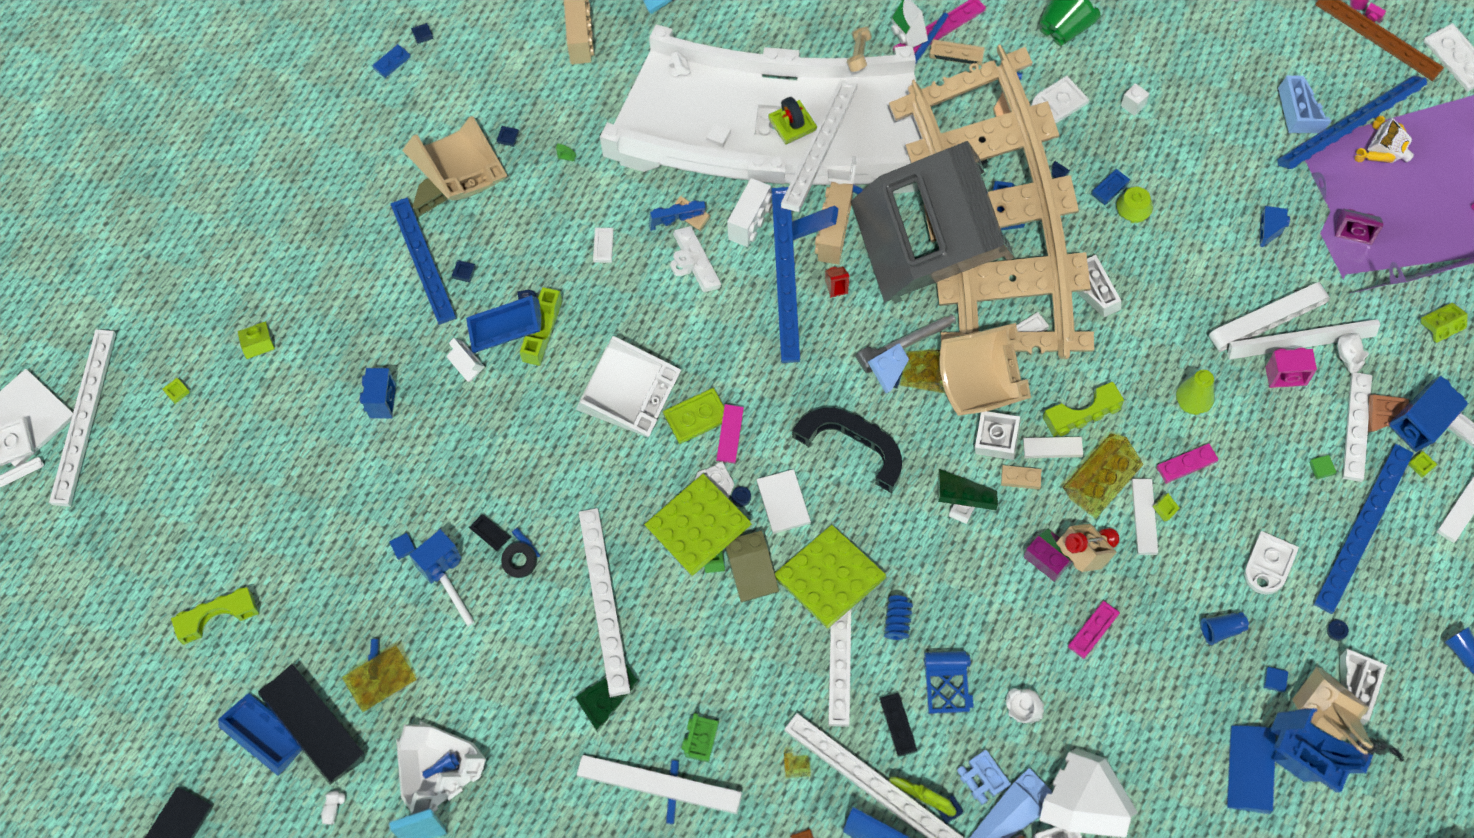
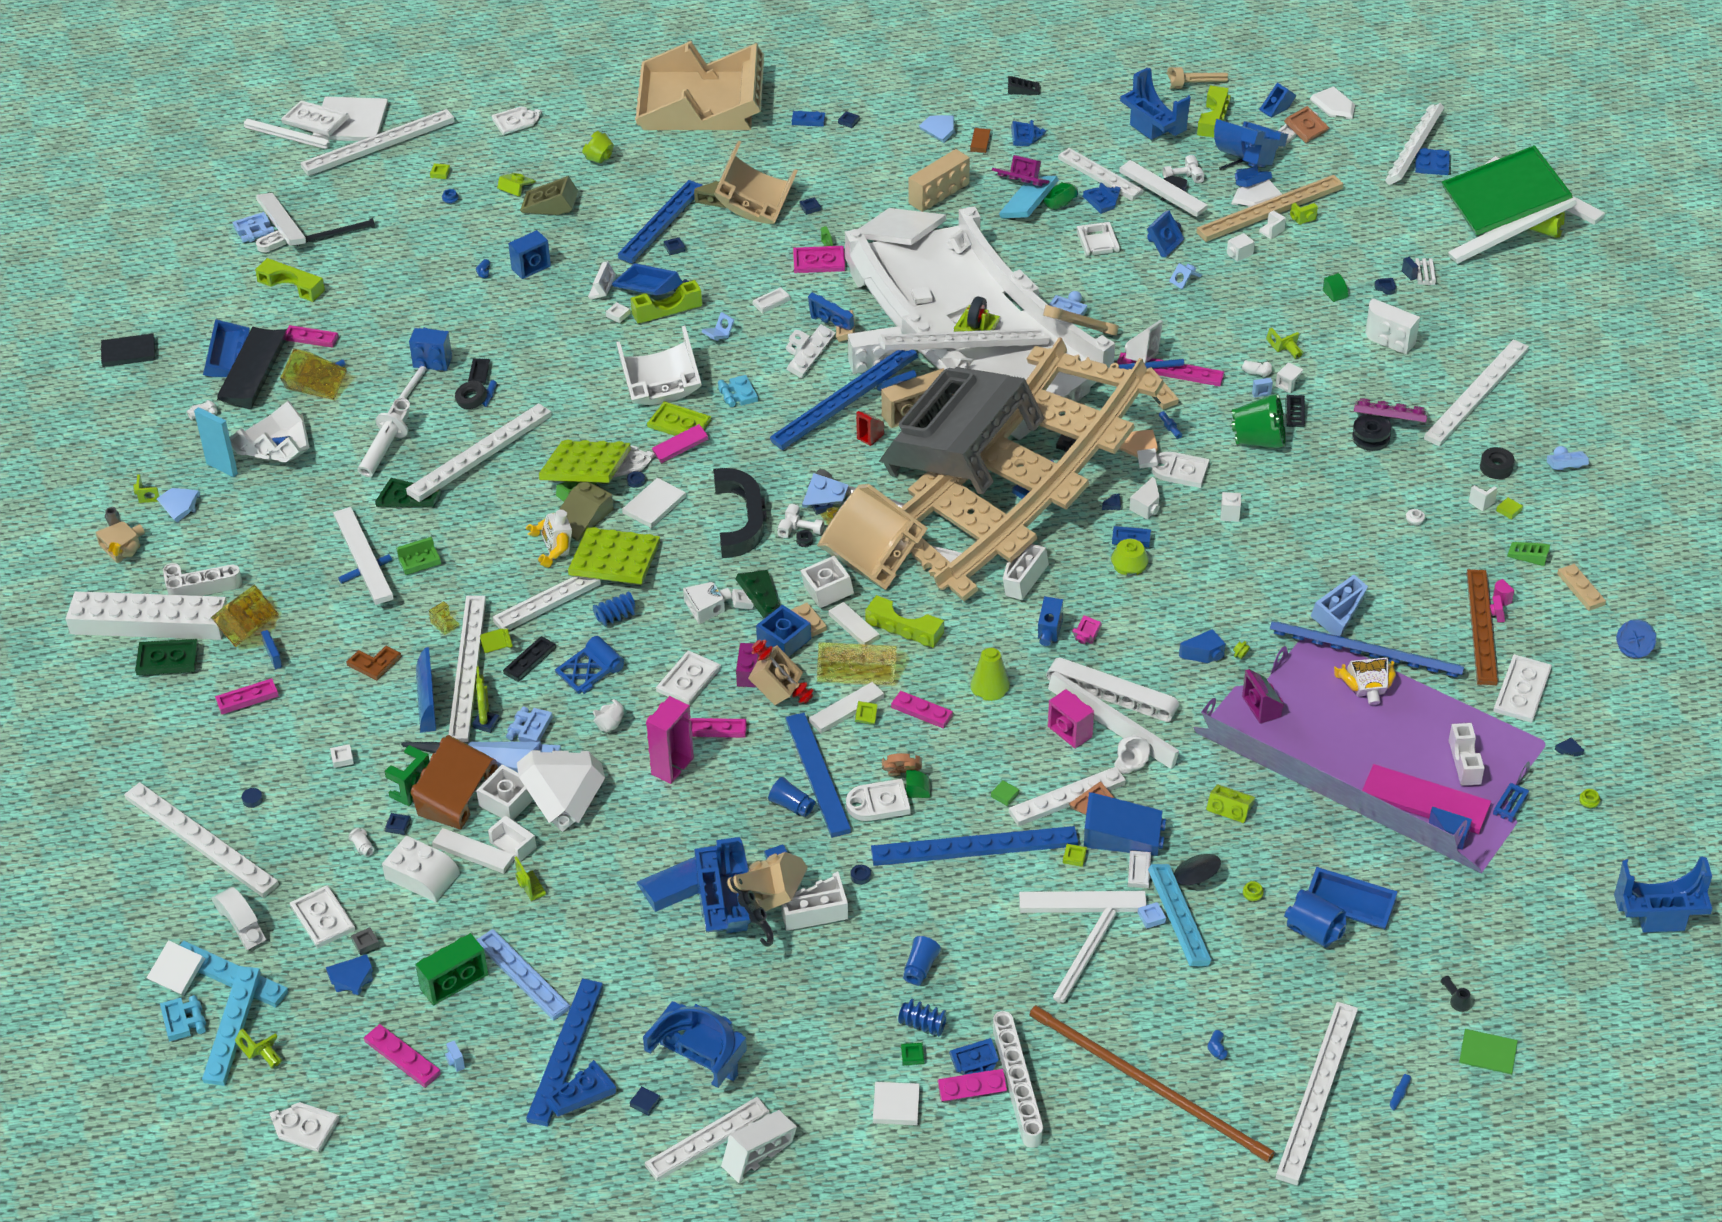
camera: 50 degrees right, 20 degrees down
(97, 599) = (251, 224): none -> light blue plate
(118, 570) = (281, 219): none -> white tile
(140, 597) = (270, 242): none -> white plate
(161, 573) = (370, 223): none -> black bar
(164, 282) = (515, 119): none -> white tile
(222, 400) = (450, 196): none -> blue plate
(281, 115) = (688, 94): none -> tan panel
(281, 244) = (598, 148): none -> lime cone
(307, 326) = (551, 198): none -> olive slope
(310, 645) = (311, 336): none -> dark pink tile
(351, 444) = (482, 270): none -> blue arm
(510, 653) = (390, 425): none -> white piece
(514, 372) = (618, 312): none -> white plate
(583, 176) = (818, 259): none -> dark pink tile
(610, 91) = (901, 226): none -> white tile
(610, 312) = (720, 332): none -> light blue bracket
(698, 341) = (742, 388): none -> medium azure plate
(769, 606) = (556, 535): none -> torso
(808, 43) = (1071, 304): none -> light blue plate
(858, 736) = (495, 640): none -> lime bracket
(898, 412) = (793, 521): none -> white bar
(918, 420) = (804, 534): none -> black bush
(942, 541) = (705, 600): none -> white torso
(1018, 613) = (688, 677): none -> white tile
(1031, 506) = (785, 630): none -> blue brick
(1080, 147) = (1146, 500): none -> white slope
(1117, 681) = (670, 739): none -> dark pink piece
(1169, 308) = (1050, 626): none -> blue torso
(1192, 289) = (1087, 630): none -> dark pink bracket
(1204, 588) = (818, 775): none -> blue tile
(1251, 521) = (900, 763): none -> nougat plate
(1272, 524) = (917, 784): none -> green brick
(1292, 202) = (1241, 649): none -> lime plate

